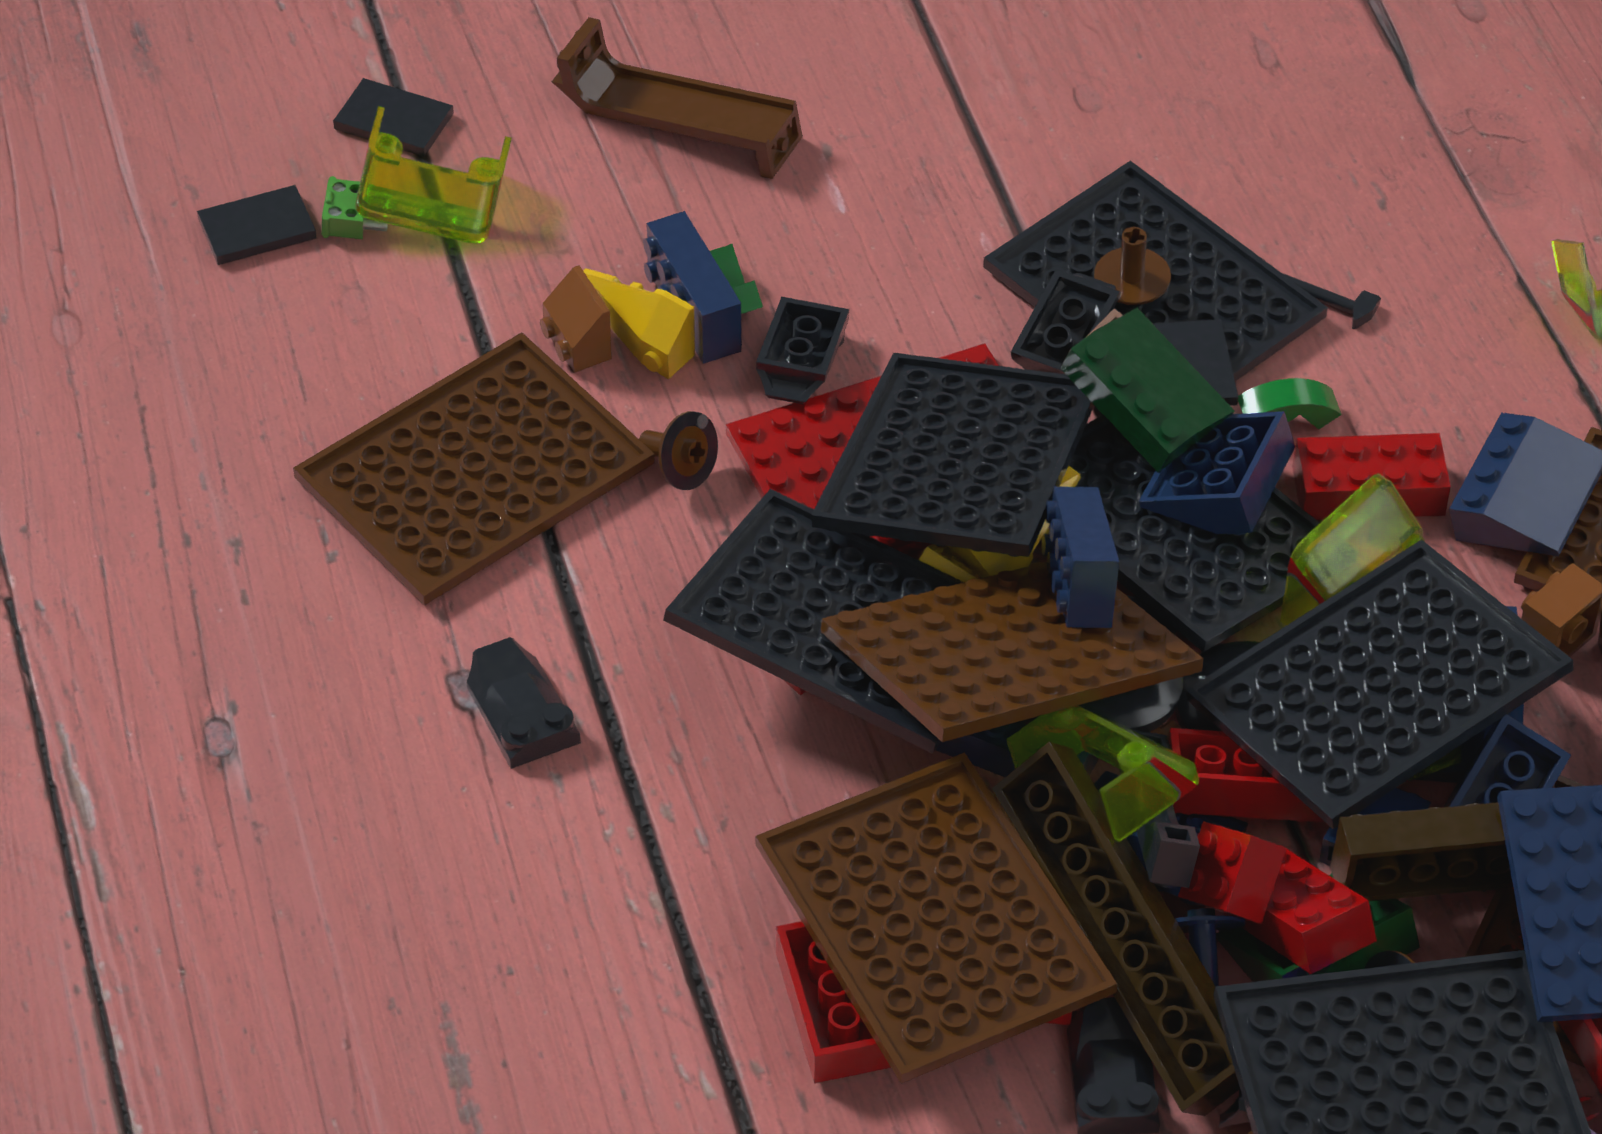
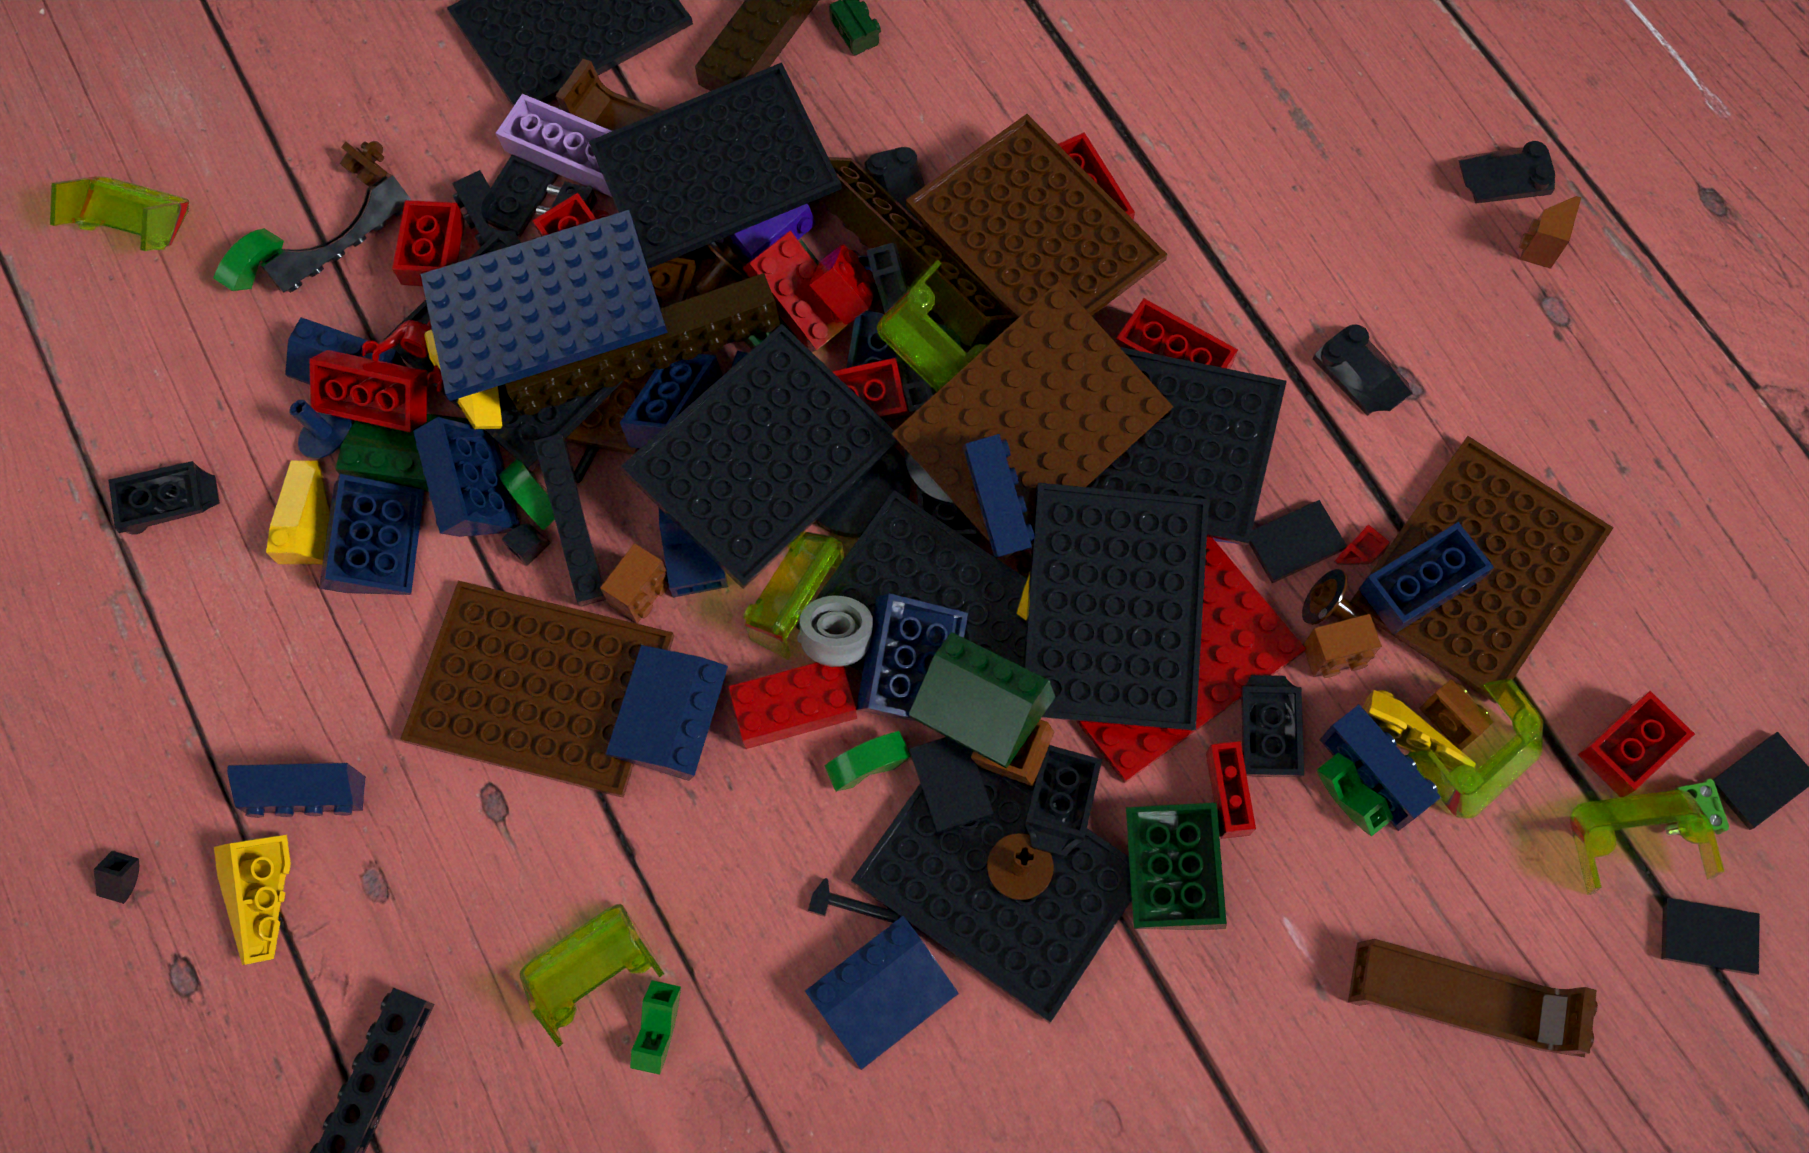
camera: 170 degrees right, 20 degrees up
(186, 800) = (1549, 233): none -> dark orange slope
(192, 919) = (1509, 173): none -> black slope
(389, 262) = (1636, 744): none -> red brick
(539, 272) = (1472, 790): none -> clear neon green windscreen
(560, 436) = (1425, 578): none -> dark blue brick
(610, 515) = (1364, 548): none -> red slope
(683, 535) = (1296, 541): none -> black tile
(688, 387) = (1342, 646): none -> dark orange brick
(773, 755) = (1165, 334): none -> red brick
(869, 303) = (1230, 790): none -> red brick
(954, 249) = (1176, 867): none -> dark green slope
(1294, 471) = (835, 630): none -> light grey piece
(1313, 221) = (882, 992): none -> dark blue slope
(1565, 223) = (657, 1027): none -> green brick

